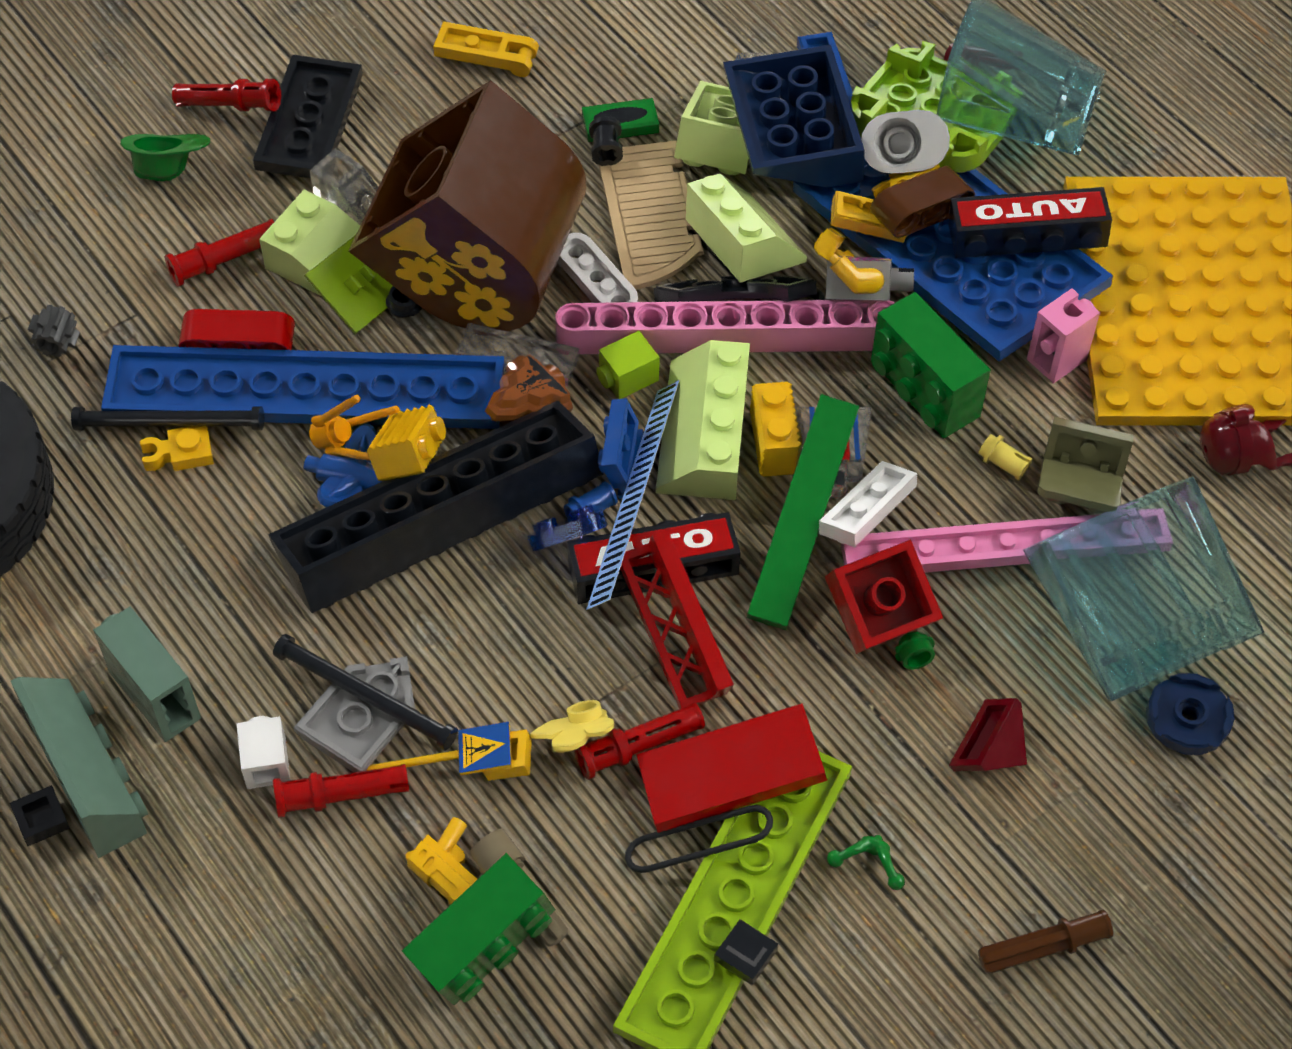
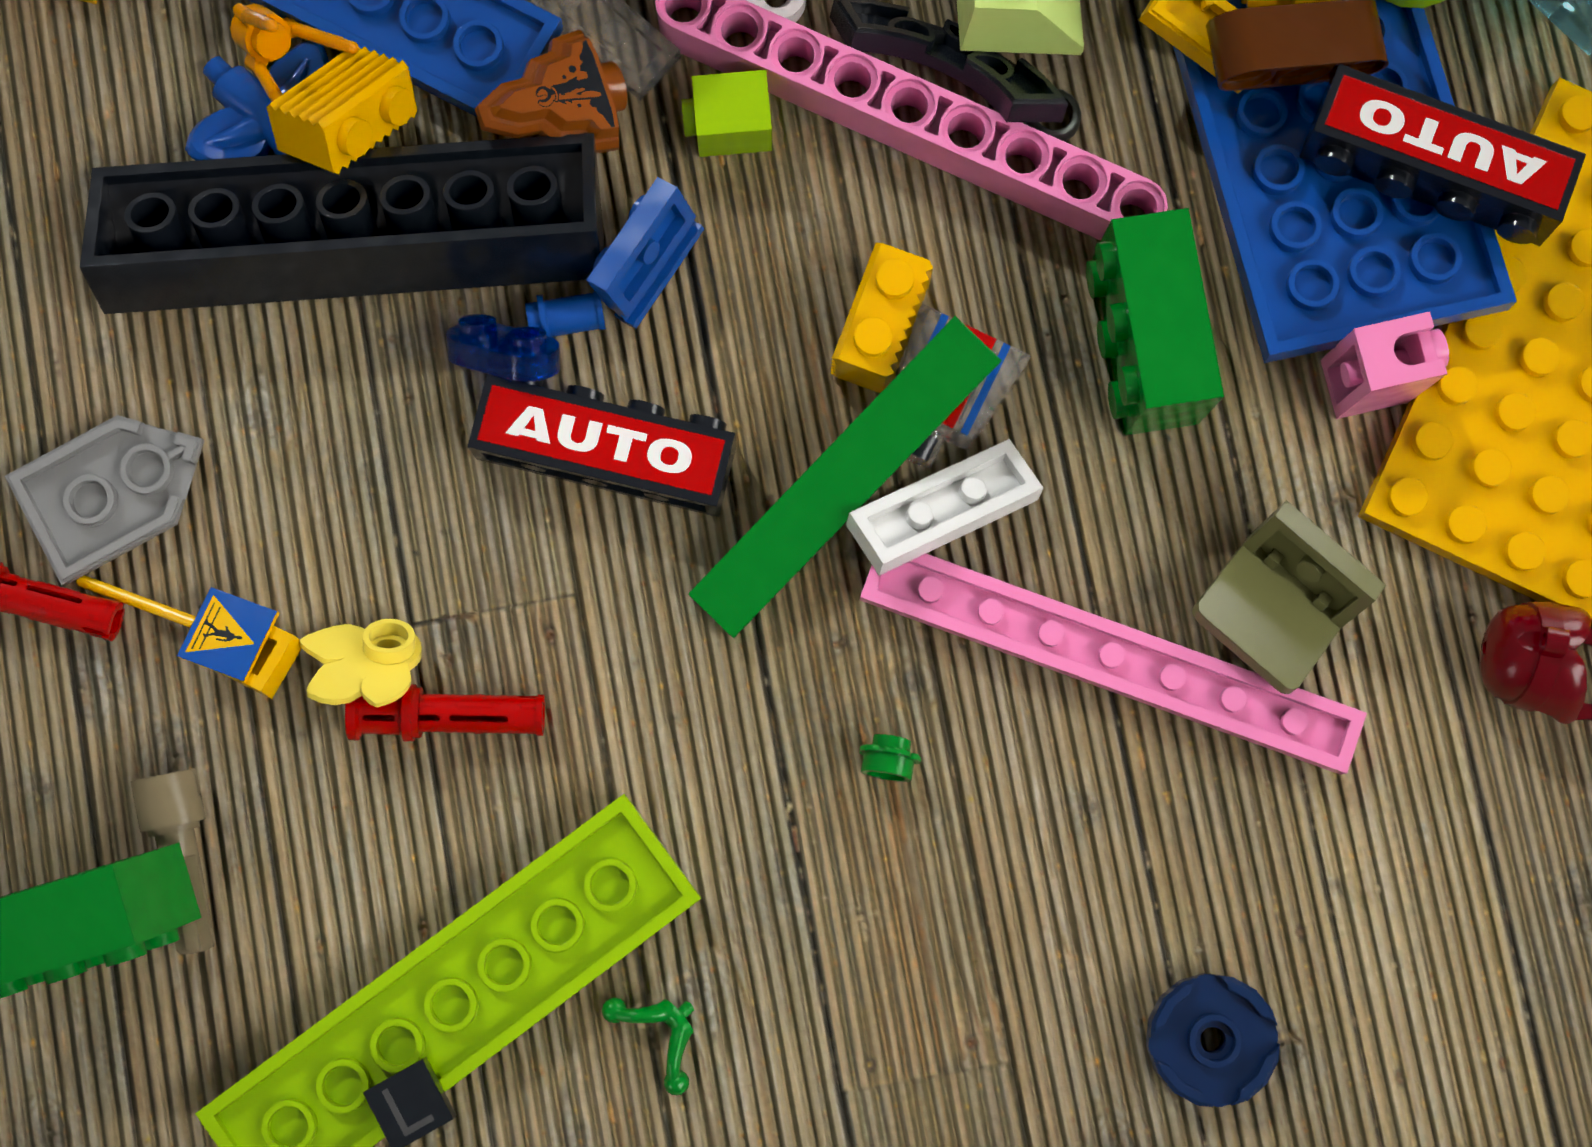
camera: 25 degrees right, 25 degrees up
(287, 648) = (43, 355): black bar -> none
(441, 862) = (97, 772): yellow piece -> none
(632, 496) = (613, 344): light blue sticker -> none
(689, 615) = (592, 569): red fence -> none
(705, 422) = (793, 256): yellowish green slope -> none
(731, 767) = (535, 825): red tile -> none
(754, 808) = (435, 931): black piece -> none
(859, 276) = (1131, 120): torso -> none
(883, 596) = (875, 673): red brick -> none
(993, 738) = (917, 945): dark red slope -> none
(1004, 456) = (1190, 514): light yellow pin -> none
(1146, 588) = (1251, 834): clear light blue windscreen -> none

